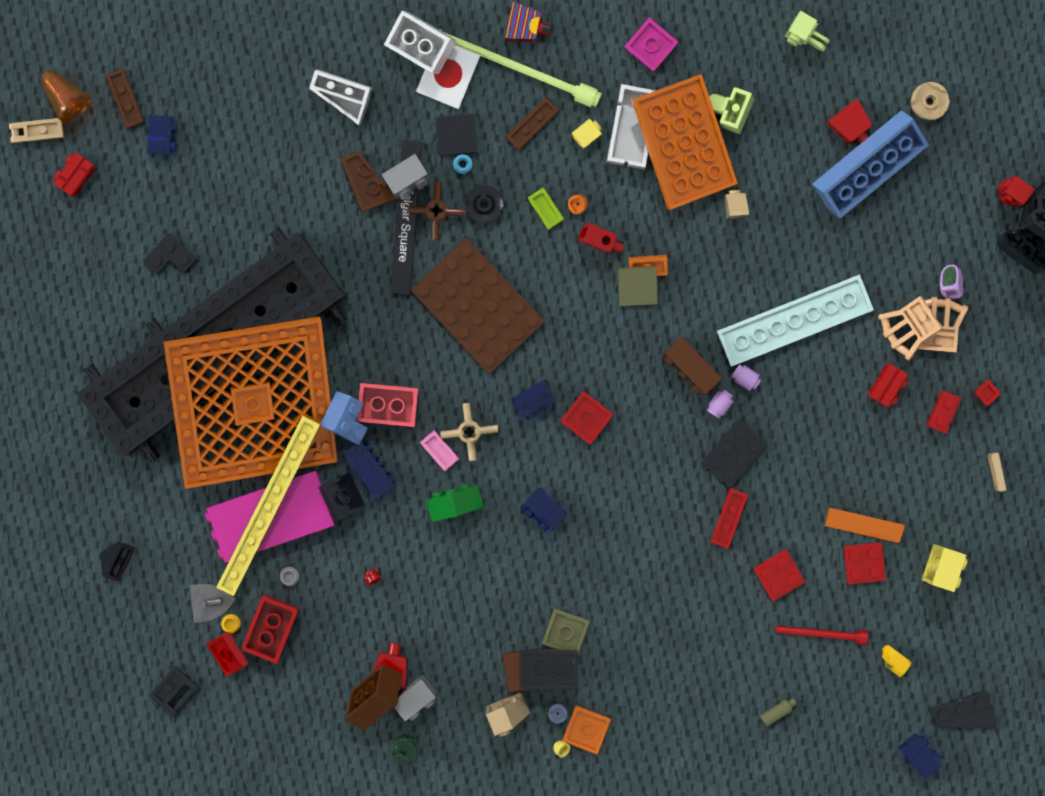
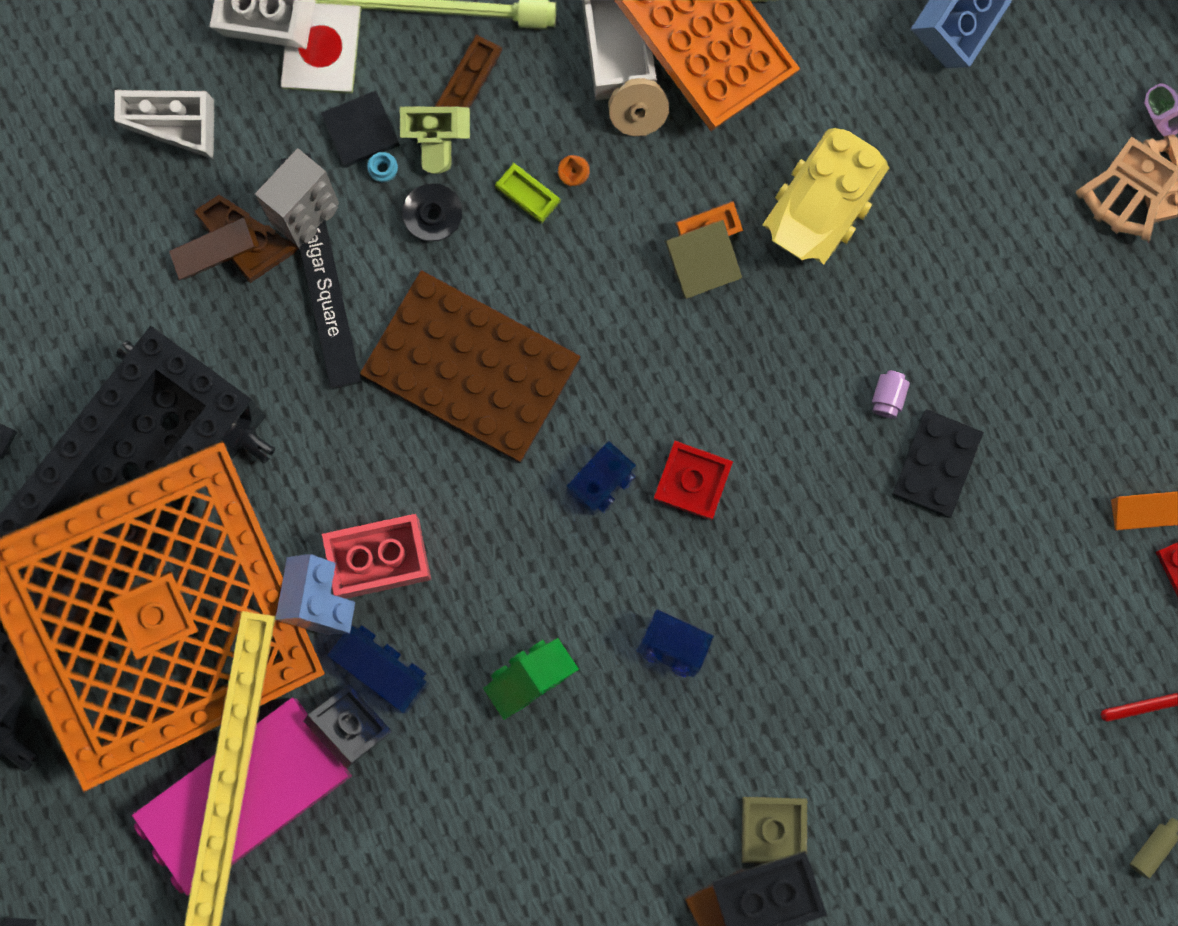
camera: 15 degrees left, 10 degrees down
(289, 576) = (301, 884): light grey plate -> none
(346, 186) = (214, 248): none -> reddish brown tile
(372, 577) = (435, 841): red plate -> none
(439, 450) = (481, 605): bright pink tile -> none
(441, 216) = (361, 232): reddish brown bar -> none
(464, 437) = (523, 572): tan bar -> none
(501, 154) = (434, 131): none -> yellowish green brick
(587, 133) = (553, 66): light yellow brick -> none
(592, 236) = (622, 206): red torso -> none
(629, 179) = (635, 95): none -> tan plate
(691, 366) = (827, 348): reddish brown brick -> none
(721, 273) = (826, 196): none -> light yellow slope
(729, 518) = (966, 565): red plate -> none
(736, 204) = (810, 98): tan slope -> none
(746, 377) = (914, 342): lavender brick -> none
(779, 575) = (1075, 628): red plate -> none
(795, 320) = (955, 238): light aqua plate -> none
(888, 385) = (1132, 287): red brick -> none

